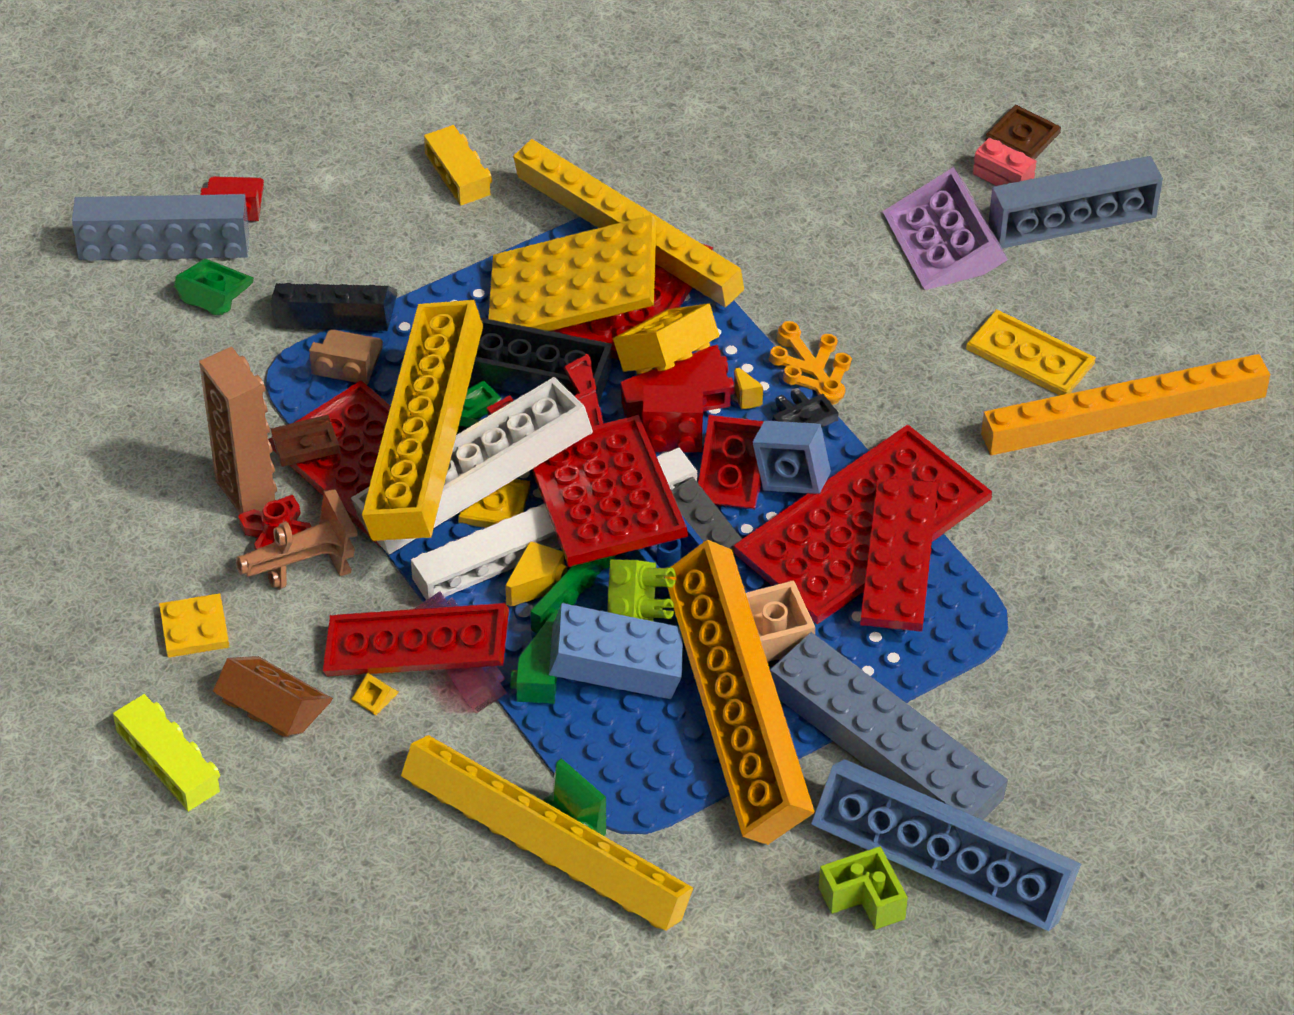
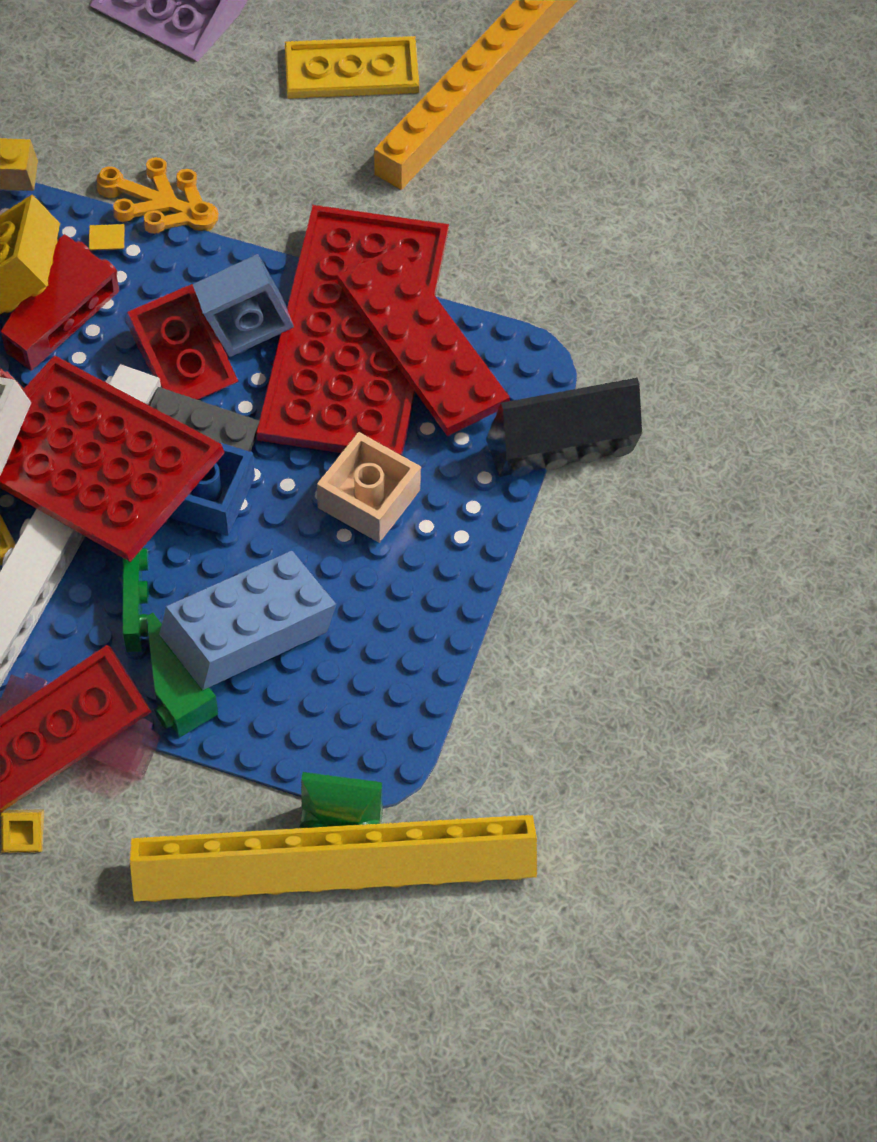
camera: 40 degrees left, 10 degrees up
(535, 574) = (87, 588): yellow slope -> none
(633, 589) = (210, 545): lime brick -> none
(673, 417) = (89, 333): red brick -> none
(738, 694) = (405, 582): light orange brick -> none
(747, 390) = (129, 262): yellow slope -> none
(753, 366) = (107, 237): none -> yellow piece
(806, 410) = (200, 255): black hinge -> none
(867, 881) = (682, 690): lime brick -> none
(883, 729) = (566, 531): sand blue brick -> none
(946, 668) = (566, 427): none -> black slope
(946, 844) = (718, 604): medium blue brick -> none

